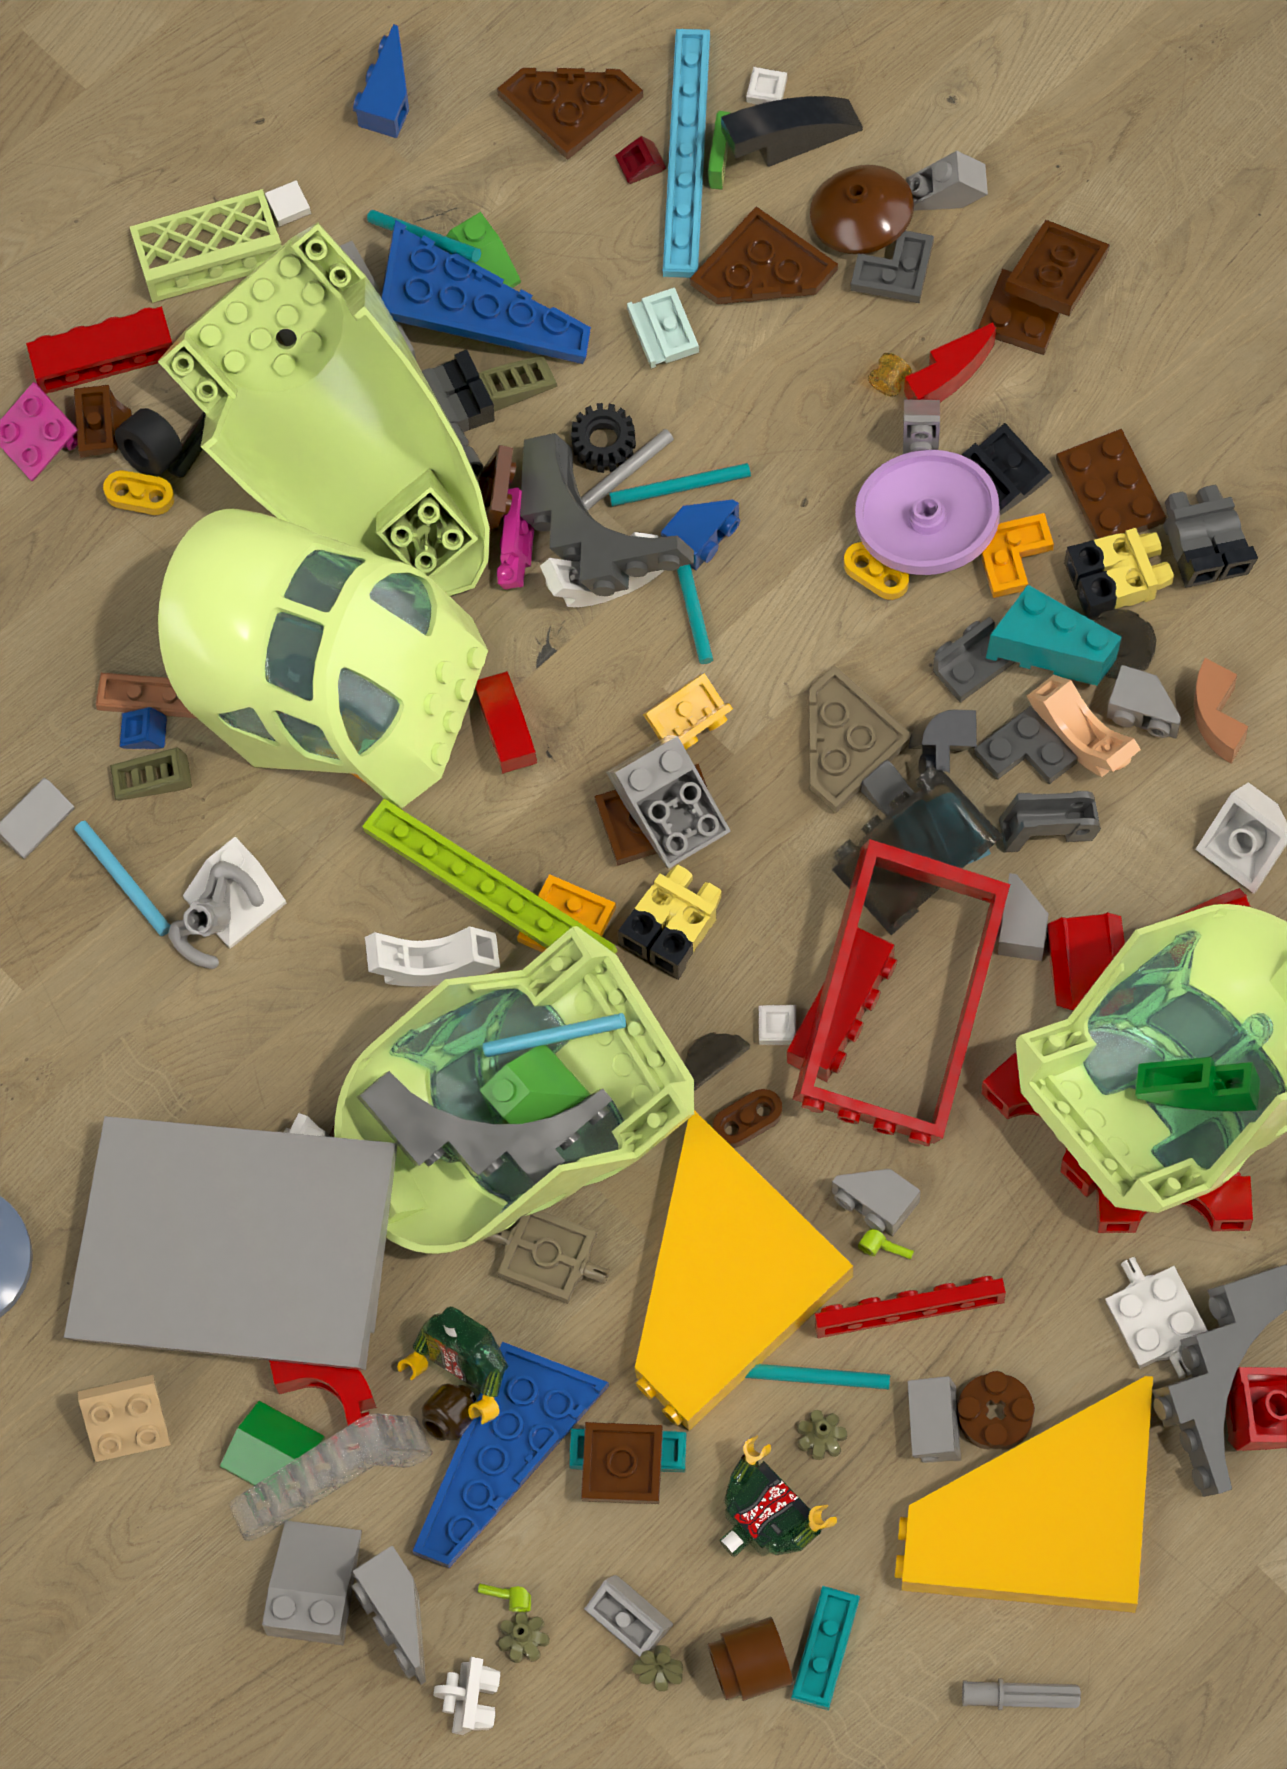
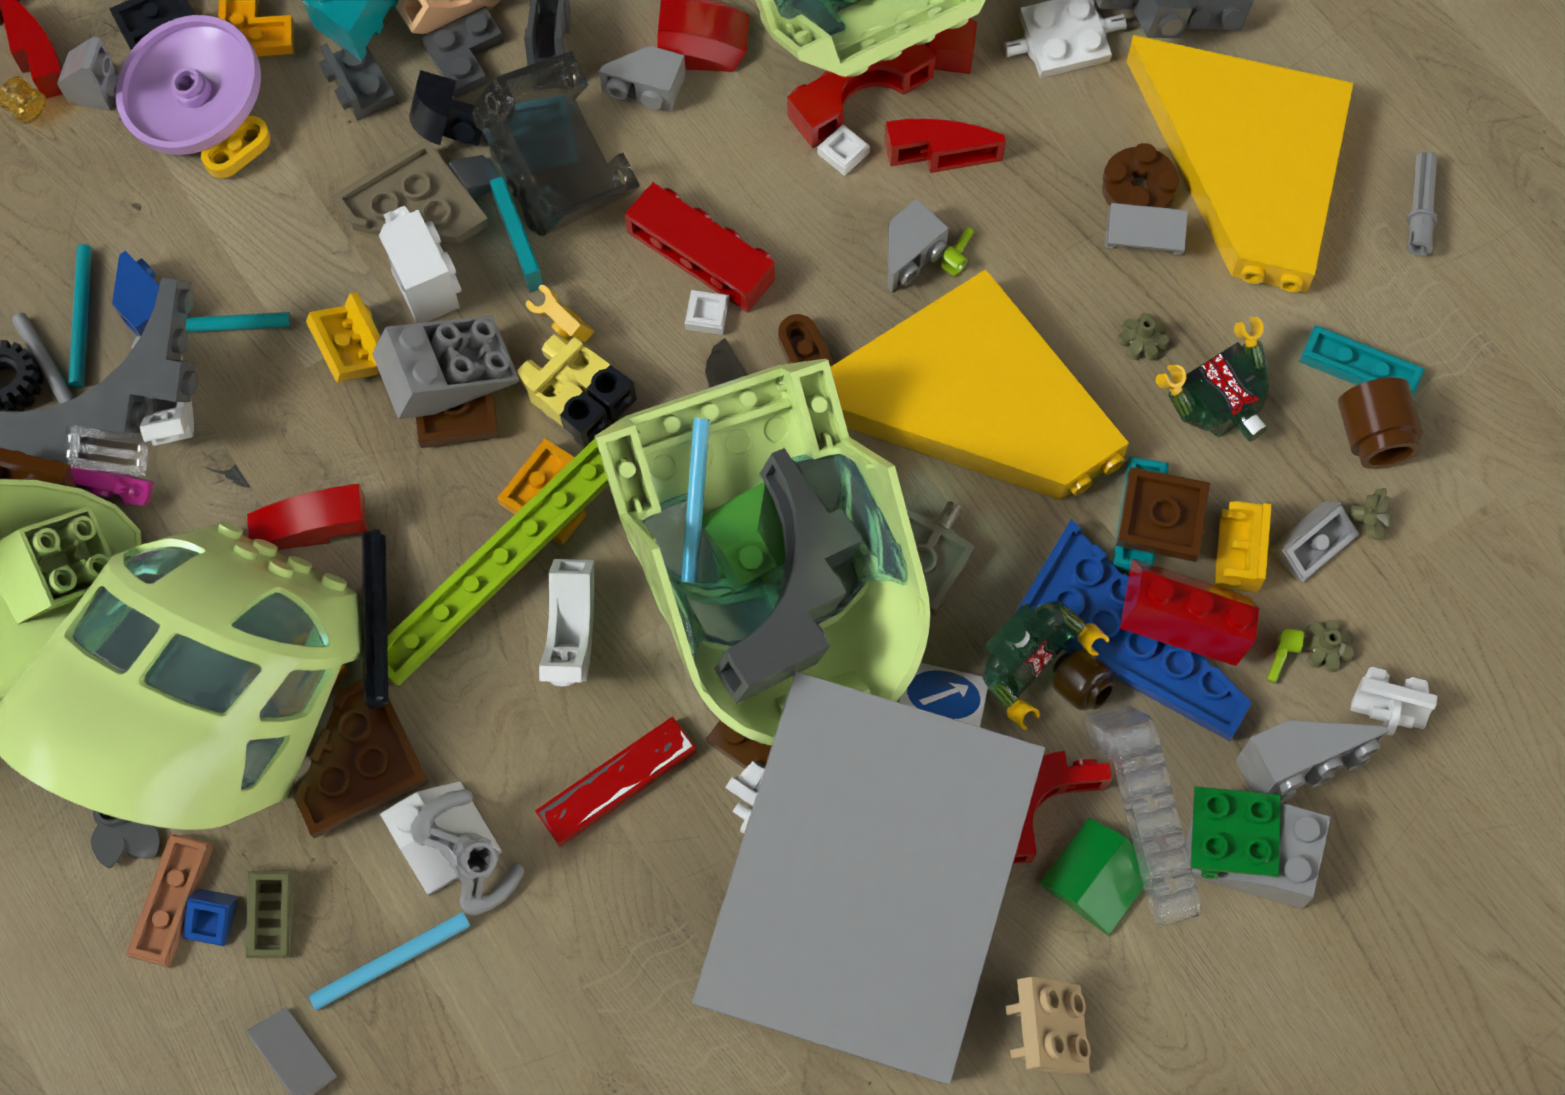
camera: 85 degrees left, 0 degrees up
(292, 813) = (356, 763): none -> reddish brown plate
(299, 1026) = (615, 781): none -> red tile
(313, 1551) = (1235, 832): none -> green hinge
(412, 1287) = (947, 693): none -> blue piece
(416, 795) = (374, 620): none -> black axle
(529, 1494) = (1189, 613): none -> red slope
(545, 513) = (73, 447): none -> clear tile
(606, 1547) = (1242, 546): none -> yellow hinge
(743, 895) = (566, 322): none -> yellow plate
(768, 754) = (420, 265): none -> white hinge
(820, 1376) = (1085, 320): teal bar -> none
(823, 837) = (516, 234): none -> teal tile
(909, 1306) = (1027, 234): red plate -> none
(938, 874) = (683, 224): red door -> none
(981, 1122) = (843, 149): none -> white tile
(996, 1207) = (942, 144): none -> red slope

